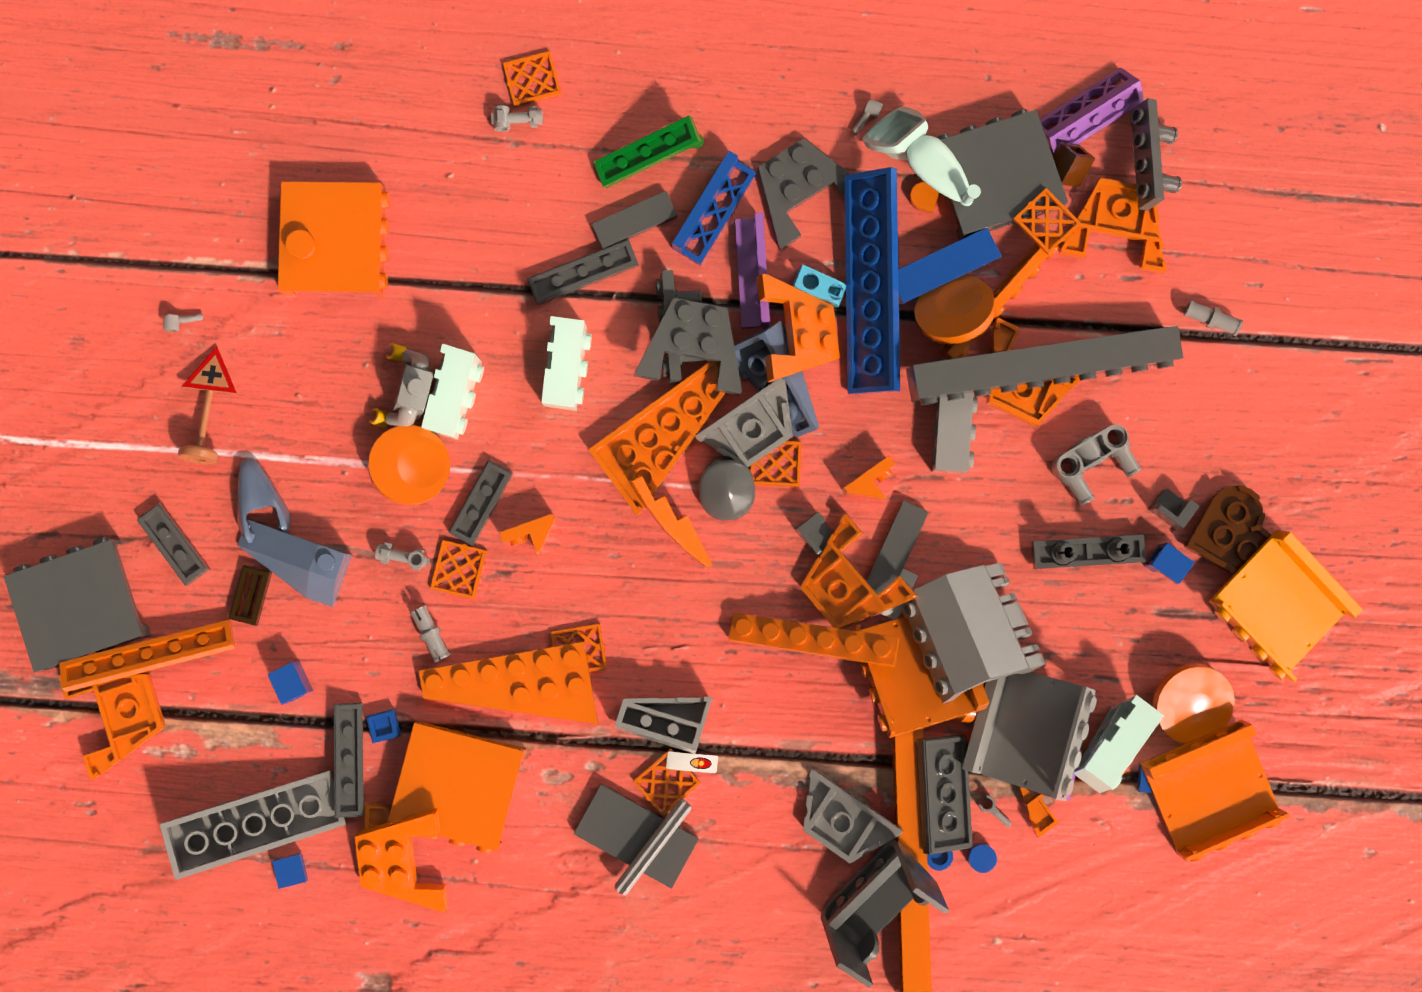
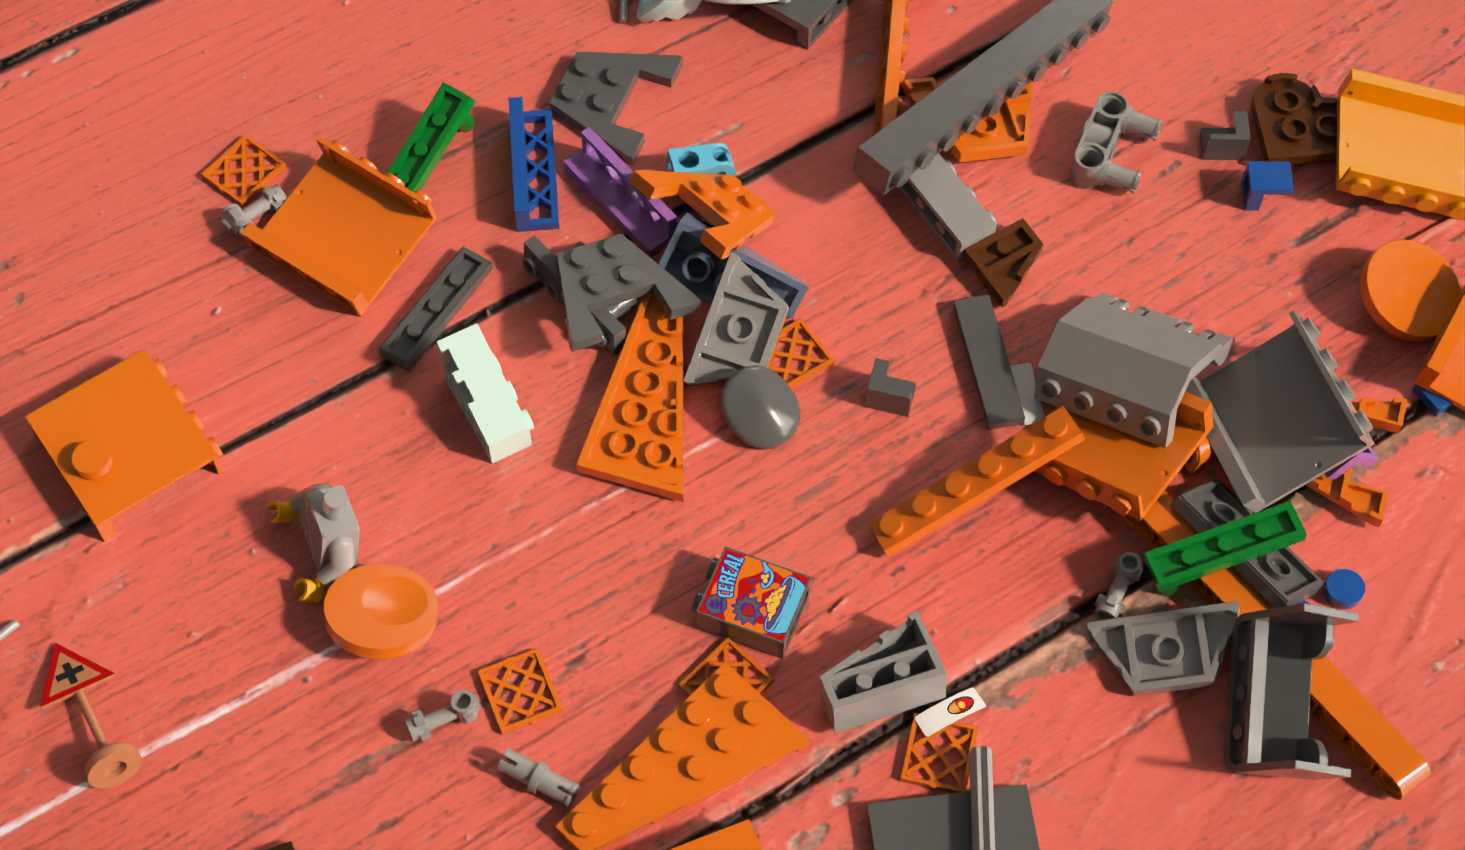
camera: 30 degrees left, 25 degrees down
(257, 492) = (210, 762): sand blue animal -> none
(301, 563) = (323, 803): sand blue wedge -> none
(452, 392) = (376, 500): light aqua wedge -> none
(480, 503) = (493, 604): dark grey tile -> none
(537, 529) = (577, 584): orange slope -> none
(560, 174) = (345, 228): none -> orange panel
(626, 614) = (752, 602): none -> brick
(635, 220) = (455, 226): dark grey tile -> none
(678, 528) = (739, 476): orange slope -> none
(841, 590) = (961, 420): orange wing -> none
(862, 754) = (1127, 571): none -> light grey bar
(864, 484) = (905, 307): orange slope -> none
(872, 281) = (754, 123): blue plate -> none
(922, 795) = (1223, 547): none -> green piece
(923, 197) = (741, 31): orange tile -> none
(946, 265) = (809, 71): blue brick -> none
(956, 310) = (856, 95): orange piece -> none
(959, 494) = (1004, 259): none -> reddish brown wing
(995, 812) = (1314, 533): light grey hand -> none
(1088, 551) = (1179, 227): dark grey plate -> none
(1117, 743) = (1373, 363): light aqua wedge -> none

